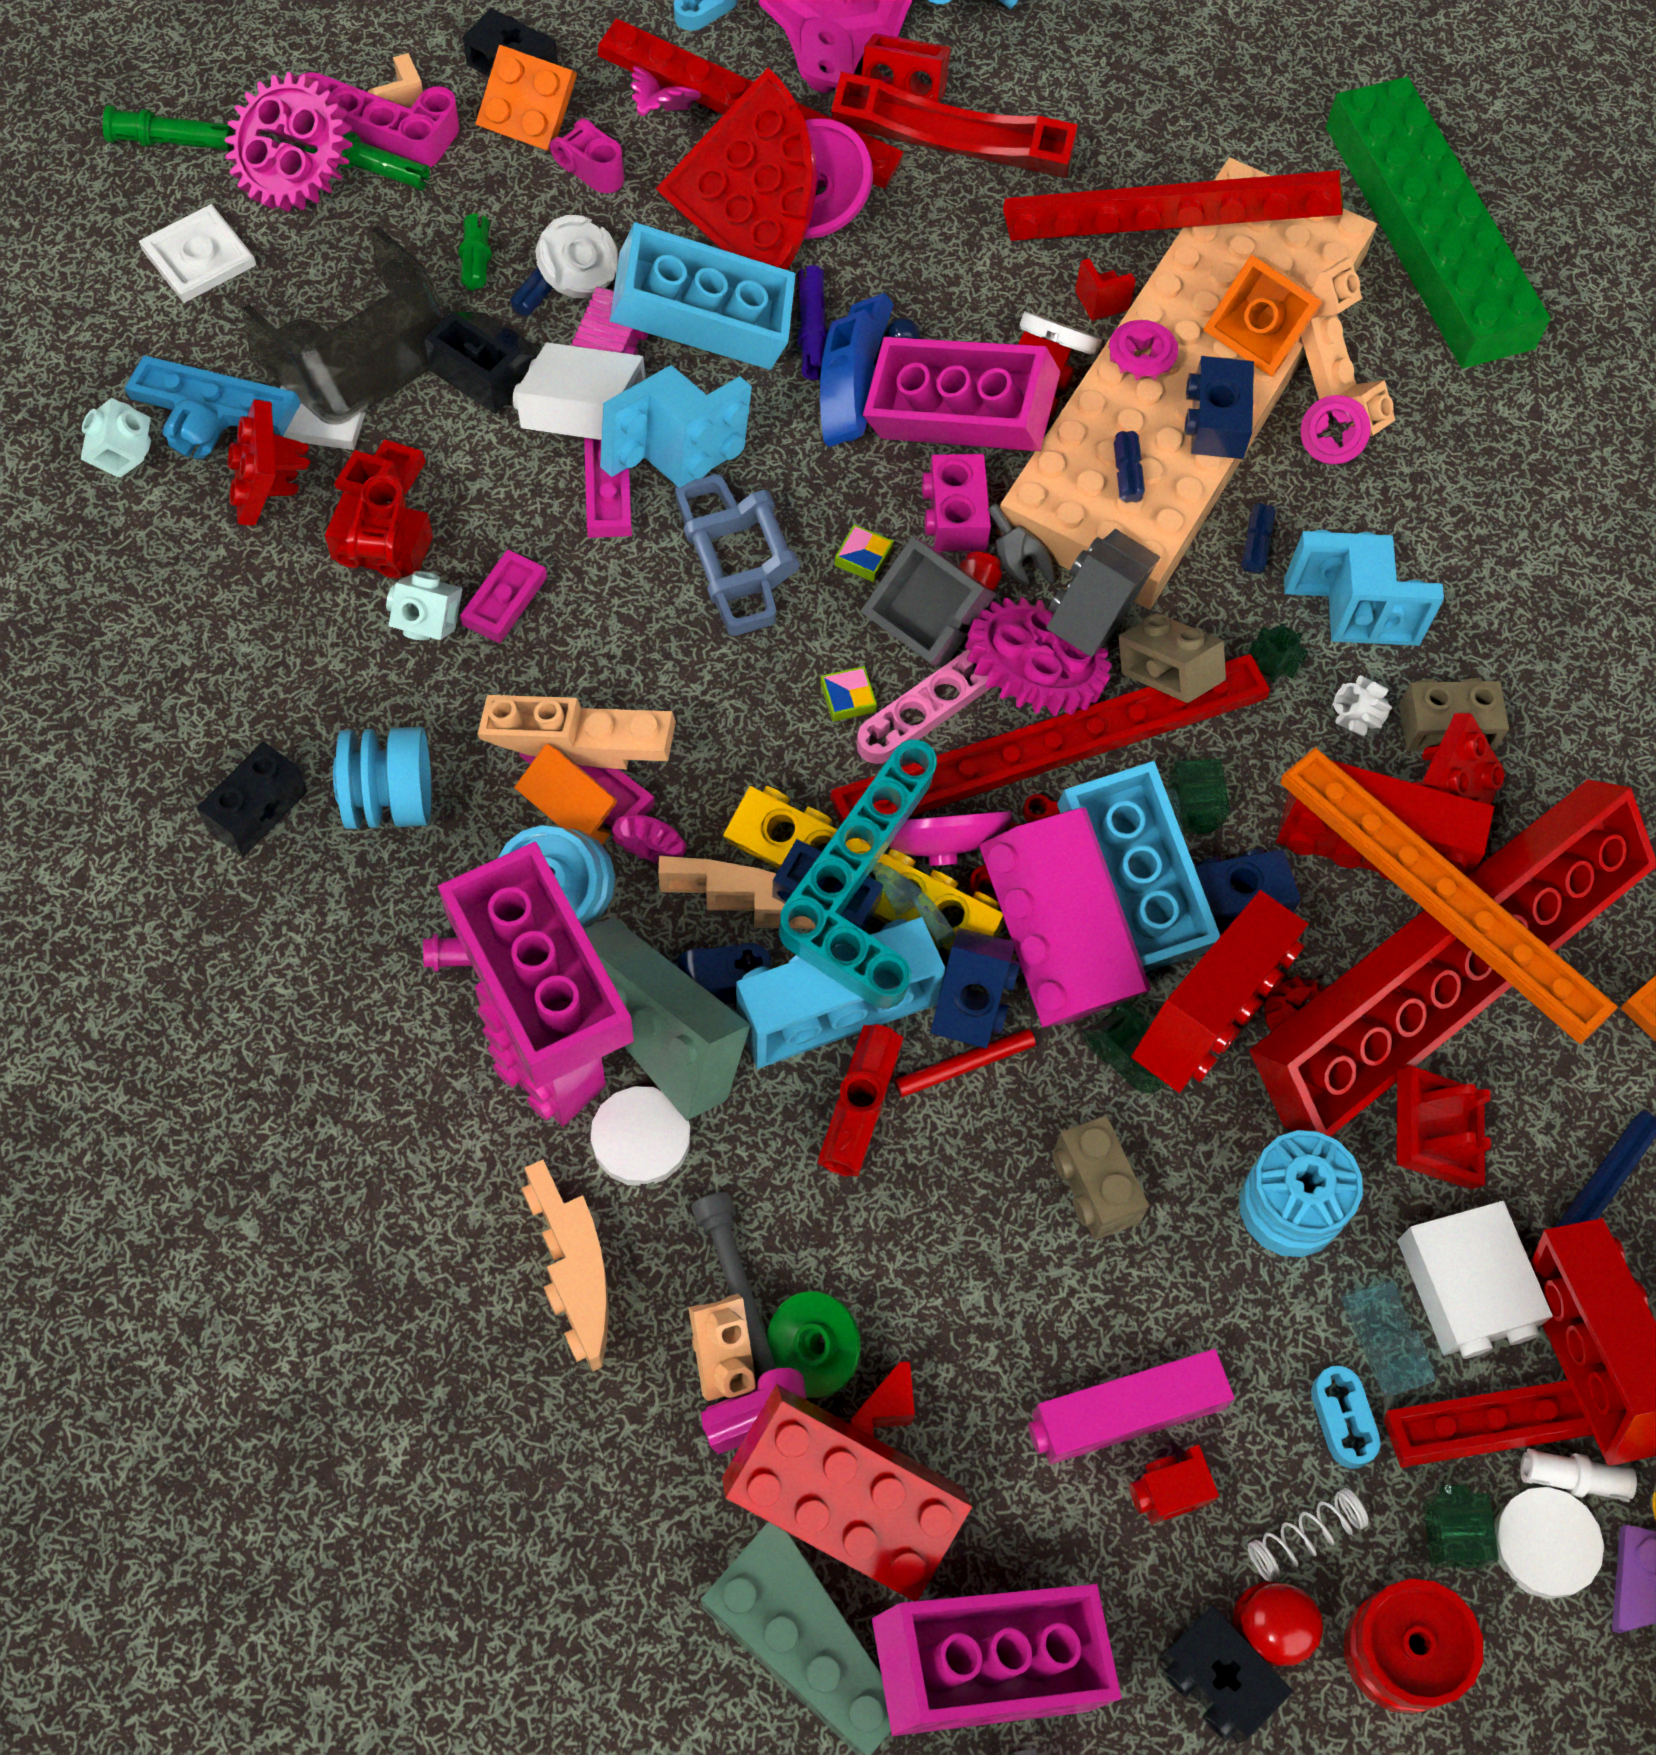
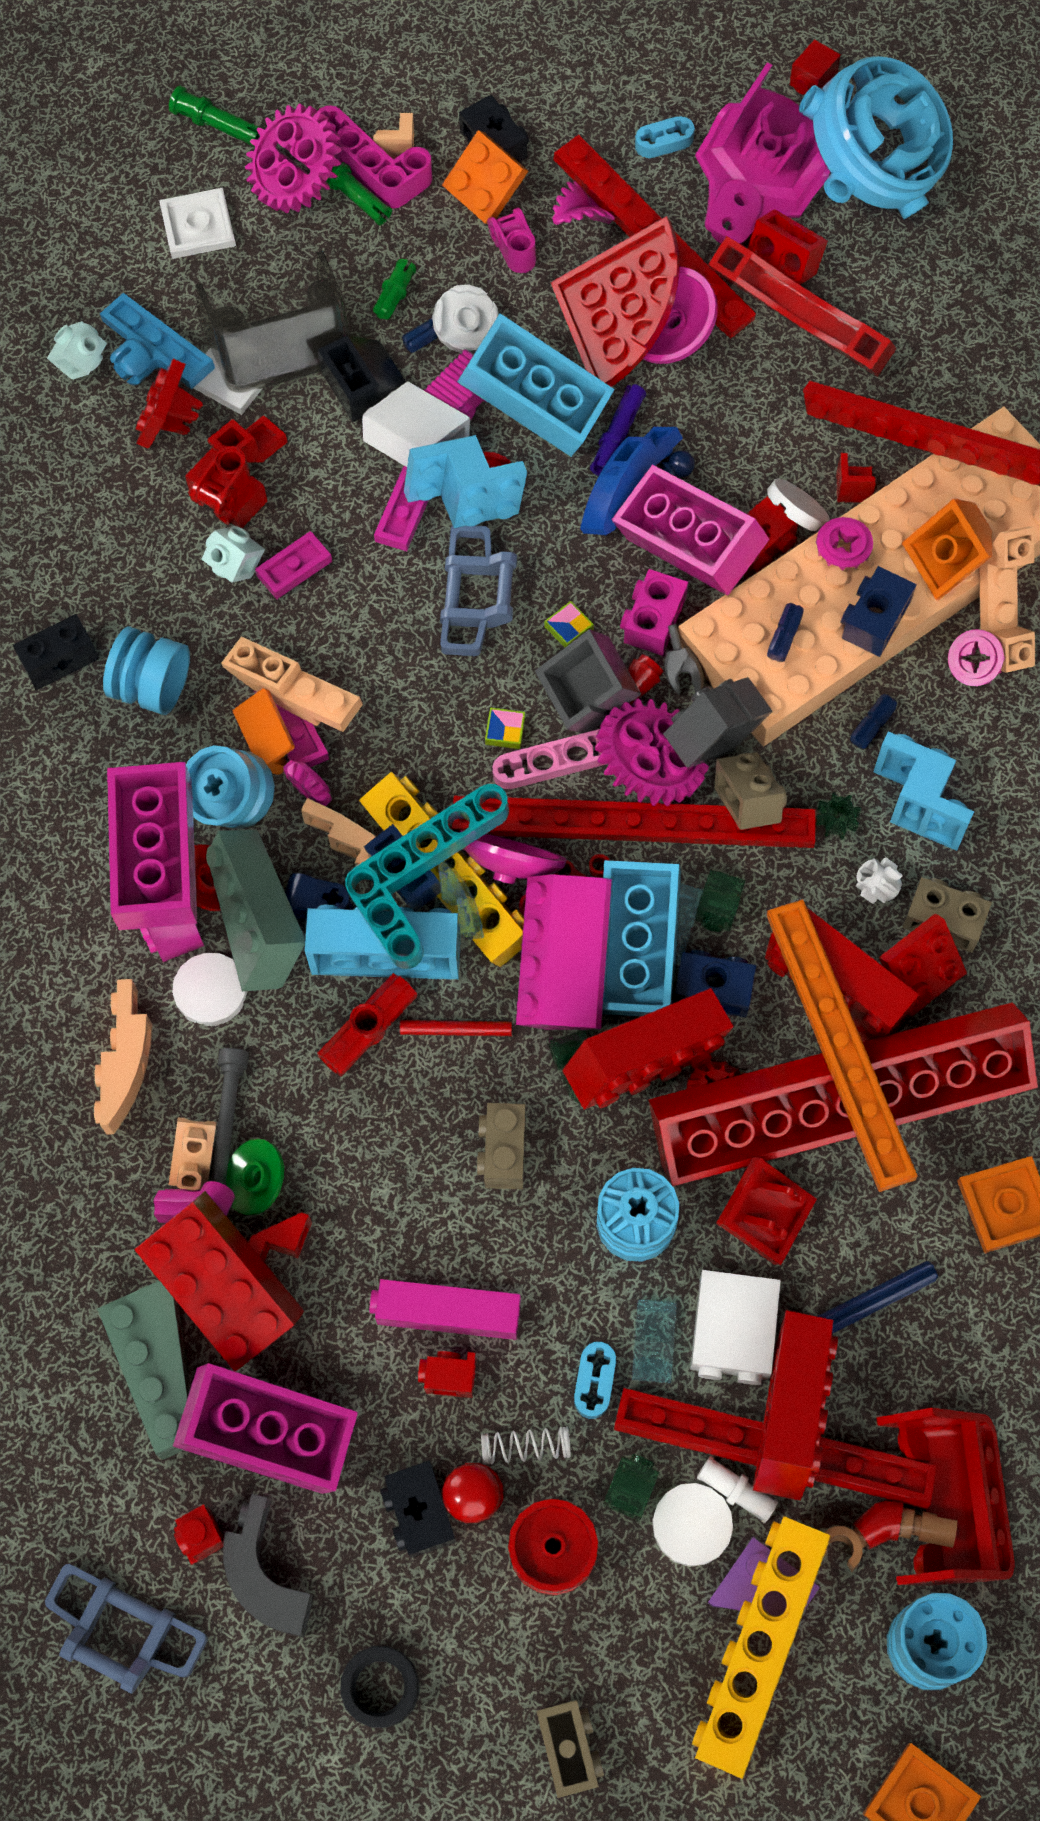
camera: 30 degrees right, 5 degrees up
(980, 961) = (479, 977): dark blue brick -> none

